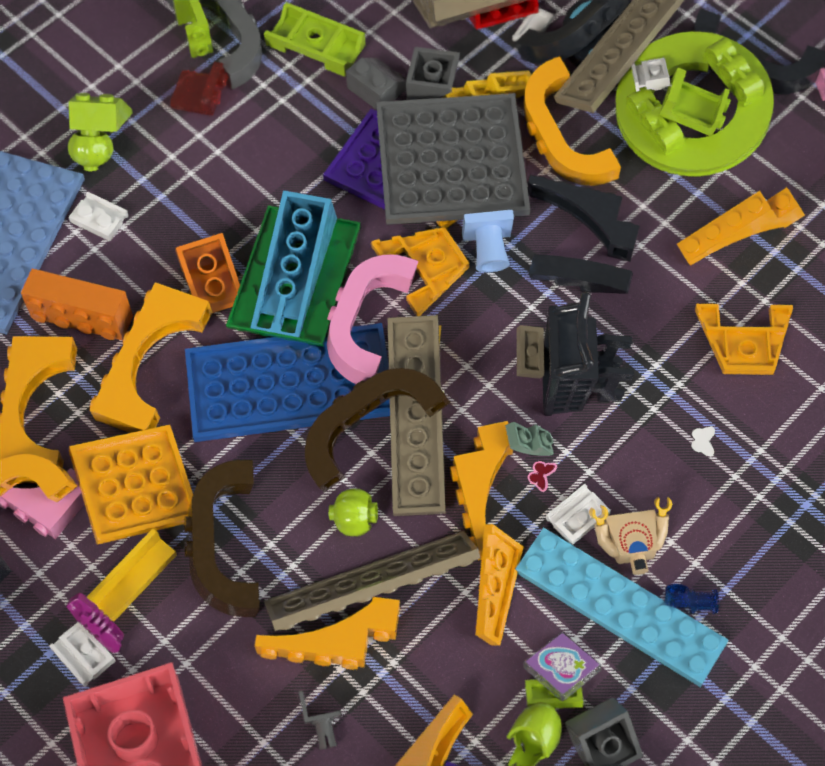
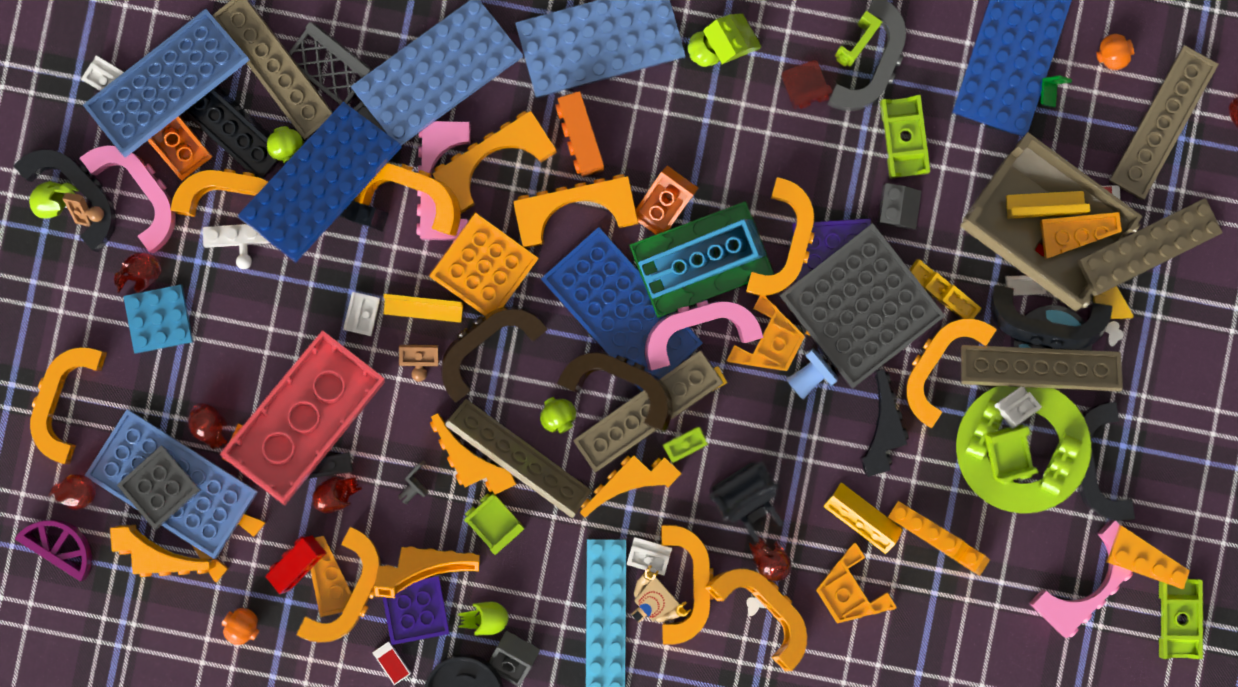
camera: 55 degrees right, 25 degrees up
(96, 622) = (381, 312): magenta hinge -> none
(98, 216) = (661, 91): white plate -> none
(178, 620) = (419, 356): none -> medium nougat plate
(320, 153) = (794, 196): none -> light orange arch
(428, 659) = (493, 523): none -> lime panel
(431, 73) = (926, 244): dark grey slope -> none
(477, 393) = (685, 444): none -> lime panel
(497, 581) = (572, 533): light orange wing -> none
(529, 440) = (679, 494): sand green slope -> none
(530, 351) = (741, 456): dark tan tile -> none
(537, 692) = (521, 612): lime plate -> none
(540, 473) = (664, 513): dark red sticker -> none
(562, 666) = (540, 607): tile -> none
(581, 273) = (828, 451): black slope -> none
(643, 478) = (702, 573): none -> light orange arch
(666, 388) = (773, 566): none -> clear red helmet
(676, 285) = (863, 518): none -> yellow panel
(682, 596) = (636, 661): clear blue connector -> none
(720, 414) = (779, 605): none -> light orange arch

